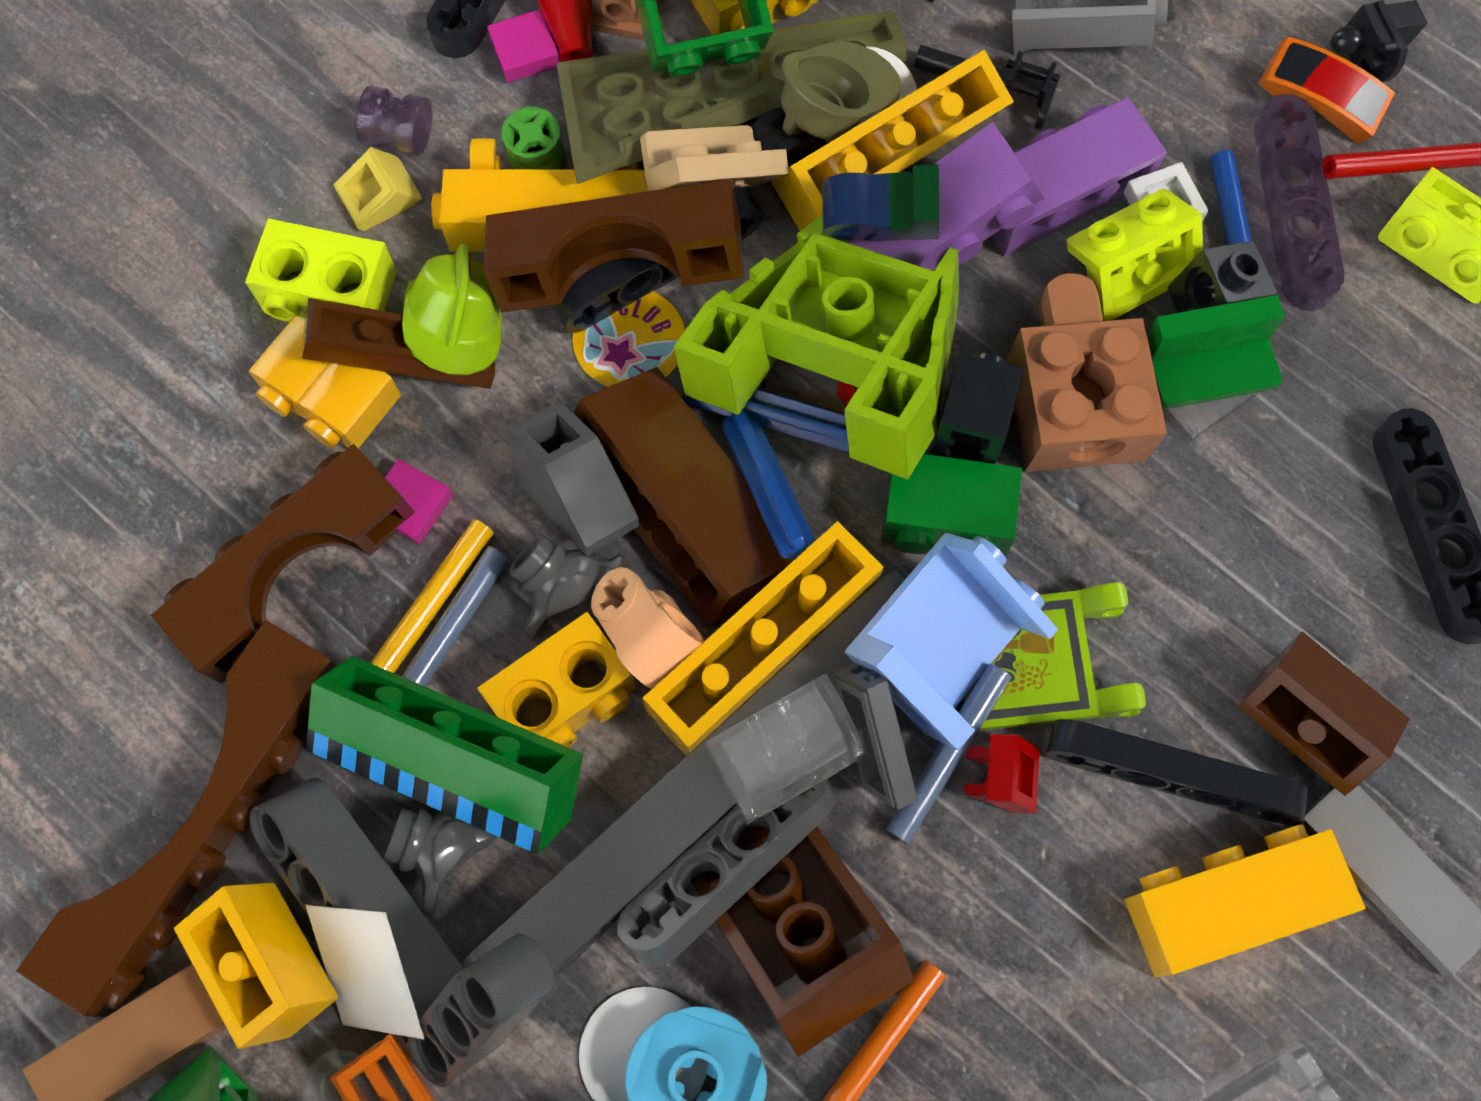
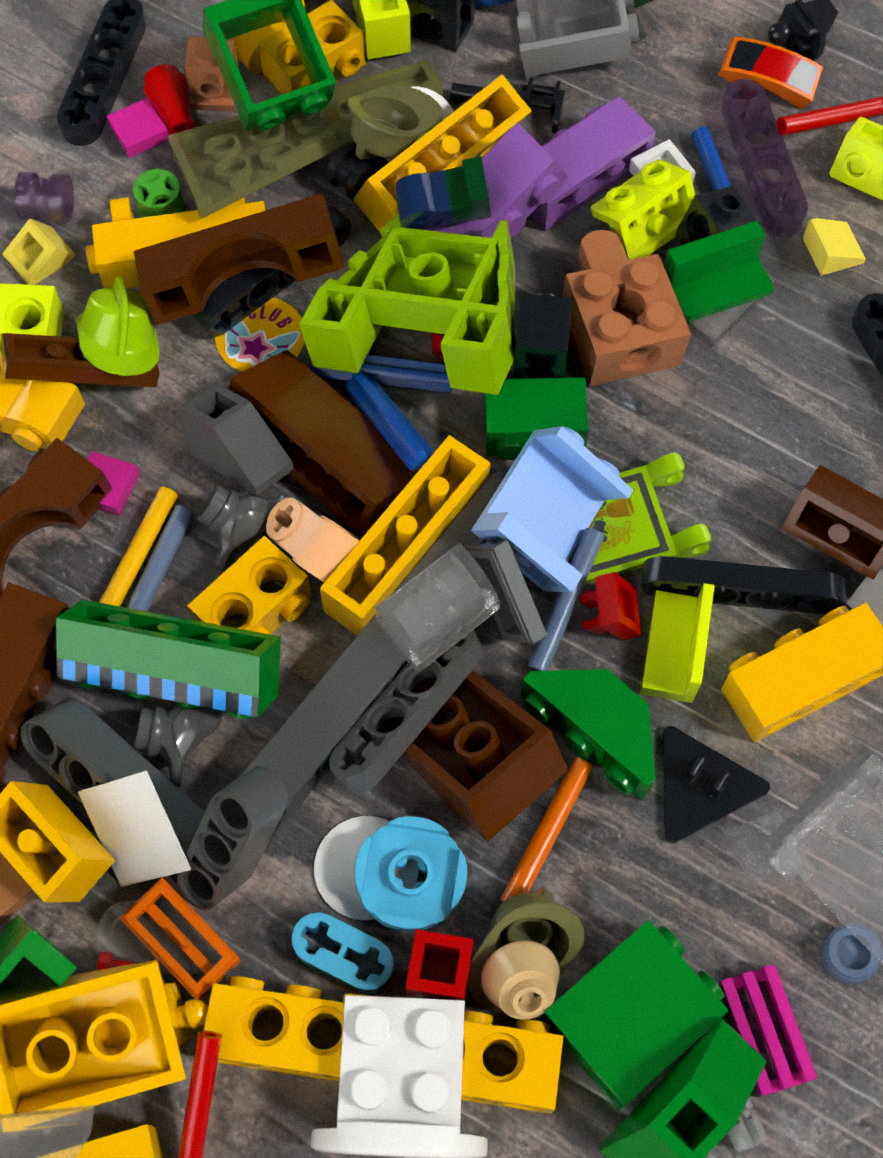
camera: 10 degrees left, 5 degrees down
(709, 155) = (299, 180): tan bracket -> none
(964, 922) = (599, 722): none -> green slope
(1078, 1023) = (701, 785): none -> black piece
(1080, 835) = (677, 645): none -> neon yellow panel
(1366, 334) = (832, 245): none -> light yellow slope

